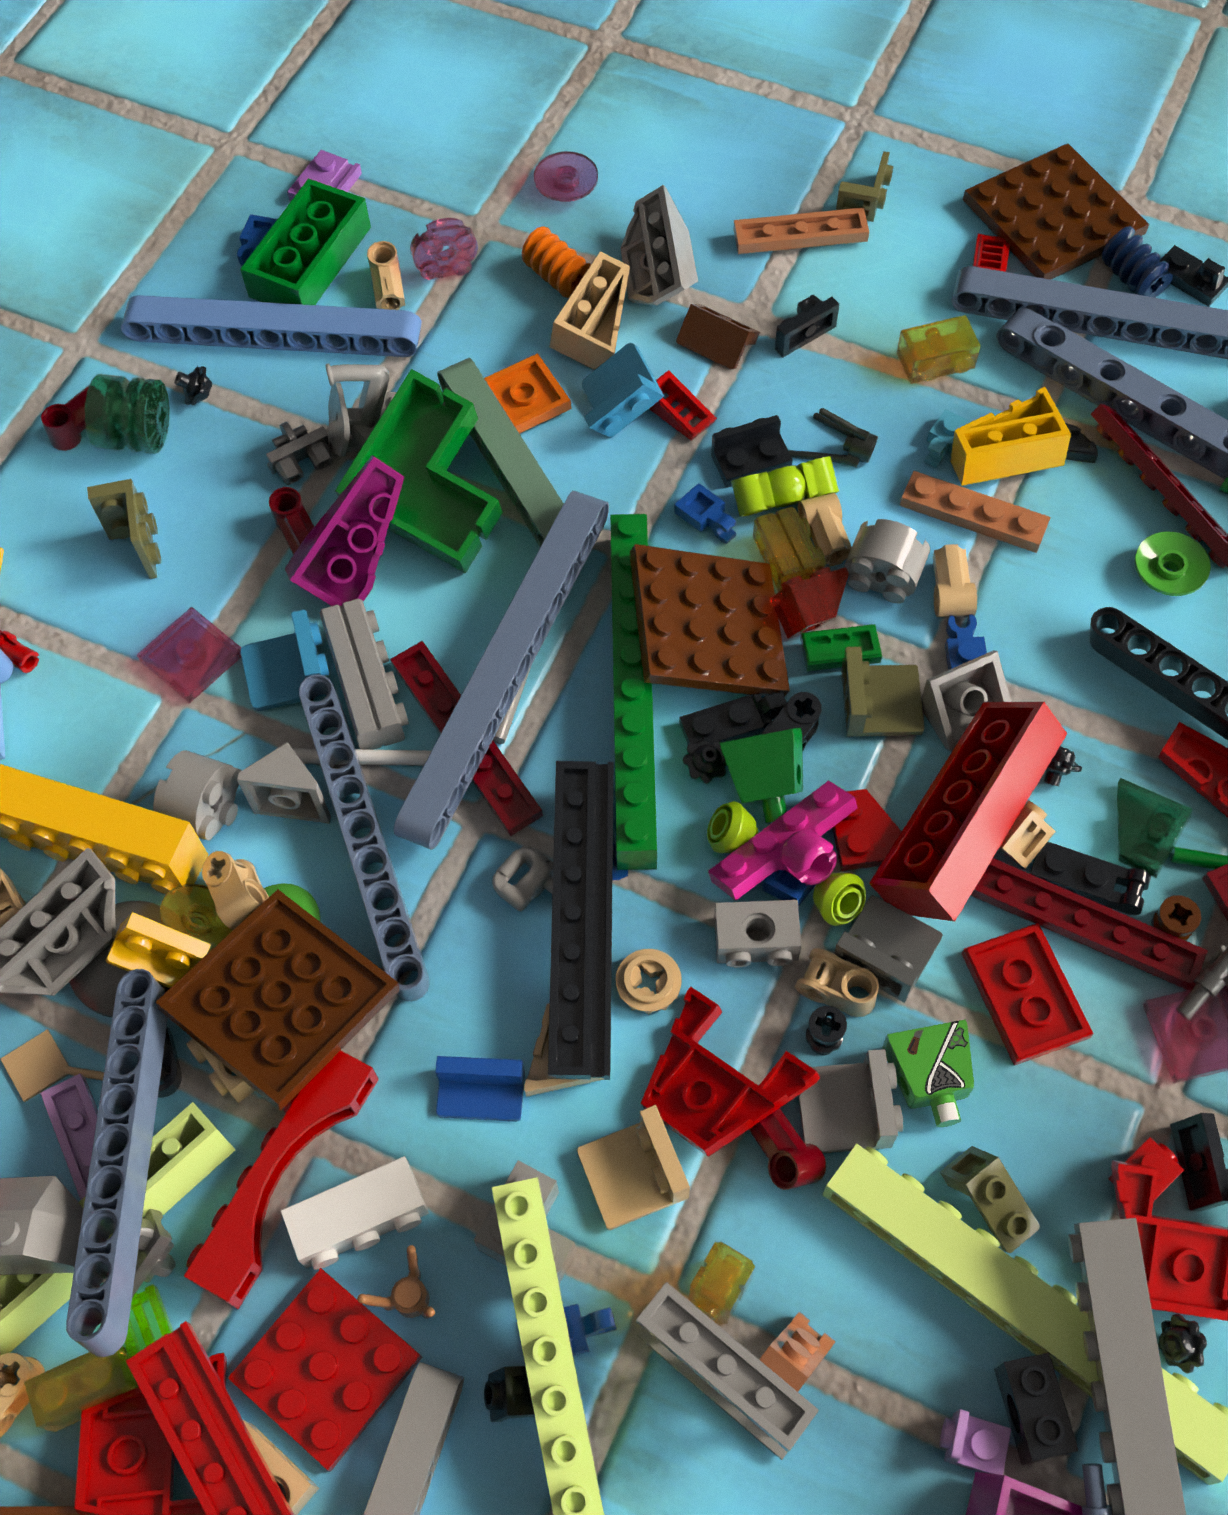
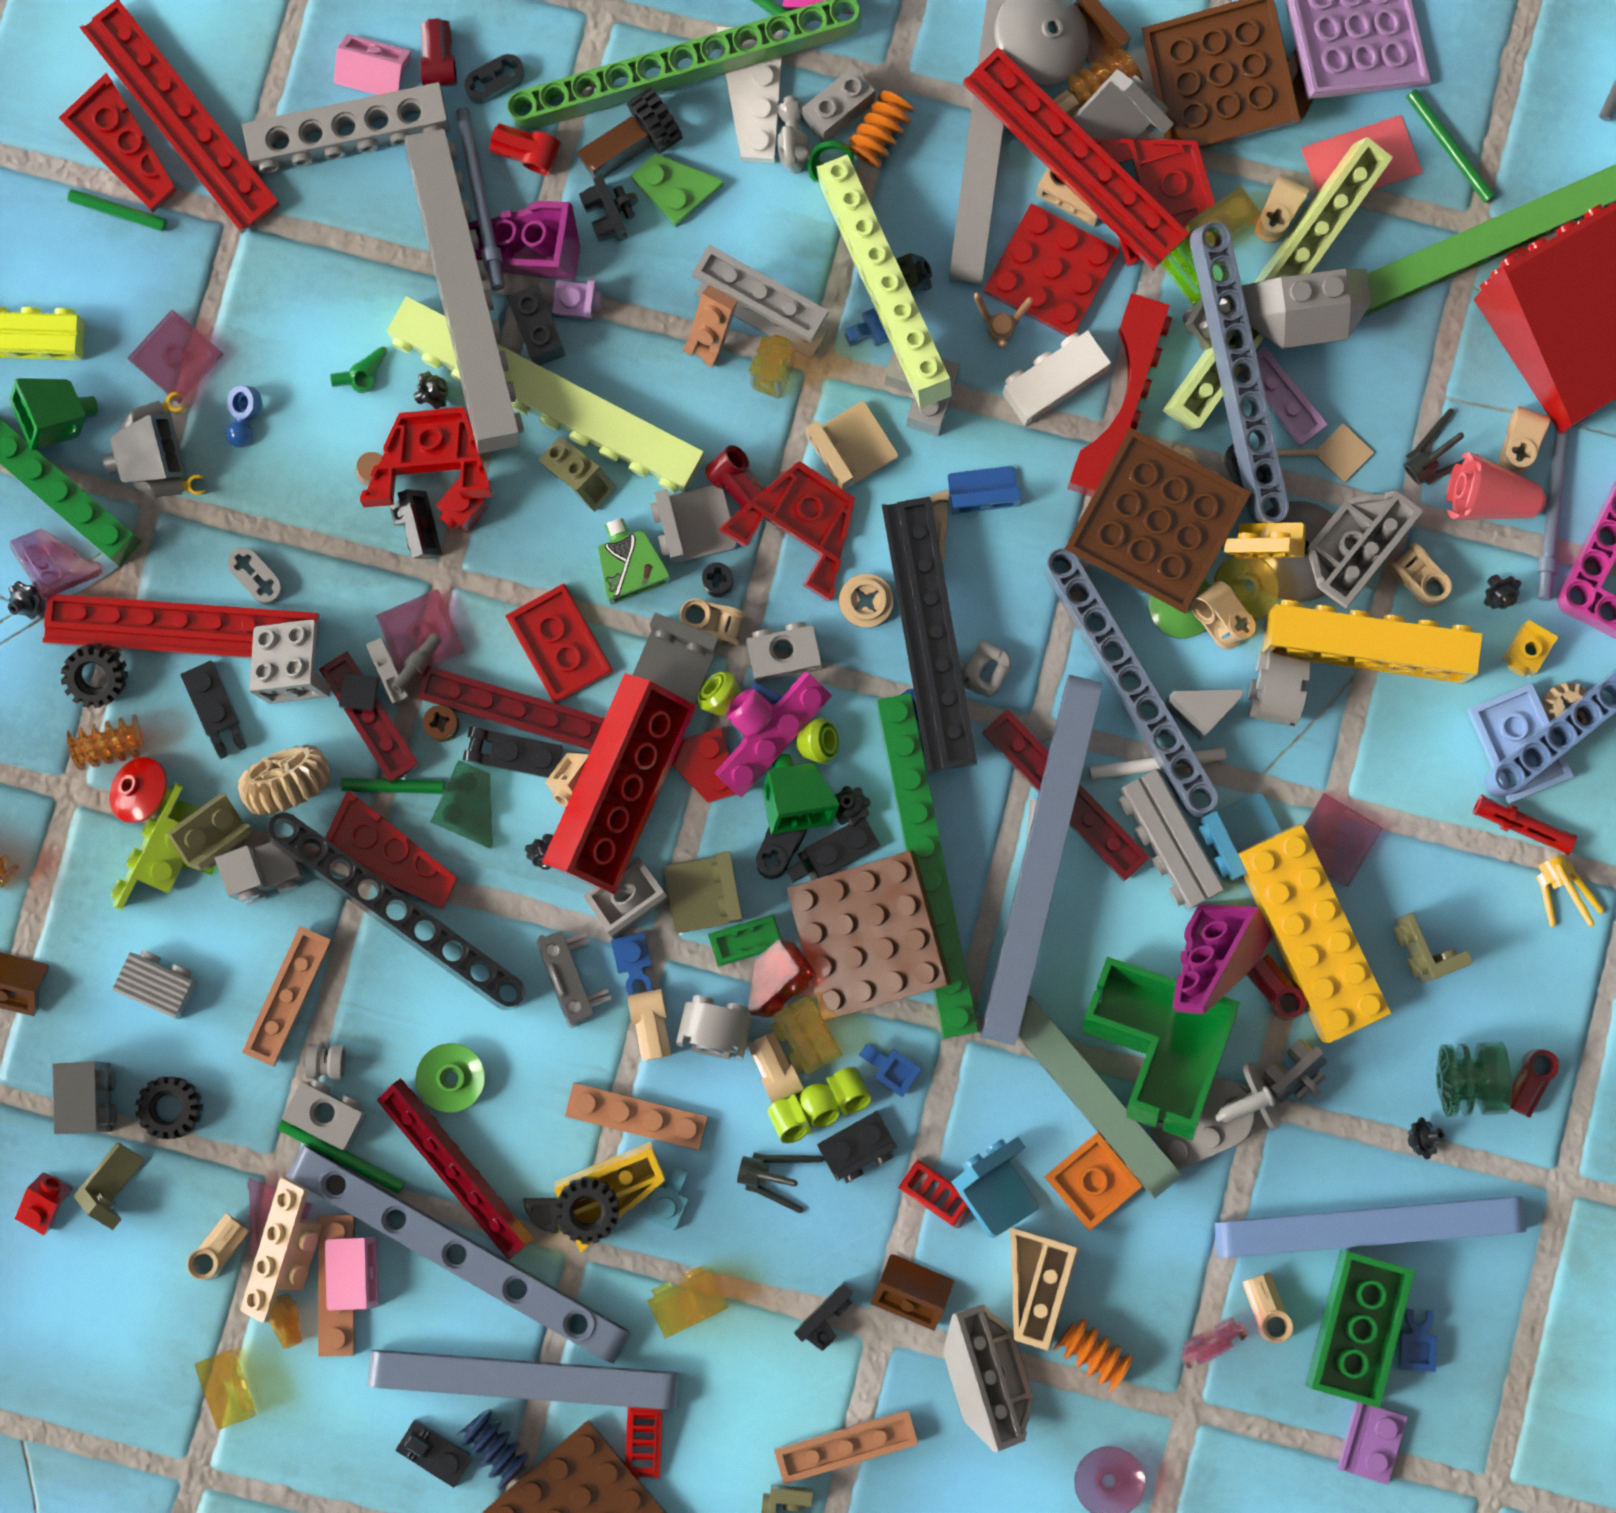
camera: 170 degrees right, 20 degrees up
(243, 564) = (1312, 934): none -> yellow brick
(1041, 392) = (587, 1231): none -> black tyre
(1042, 638) = (565, 977): none -> dark grey piece

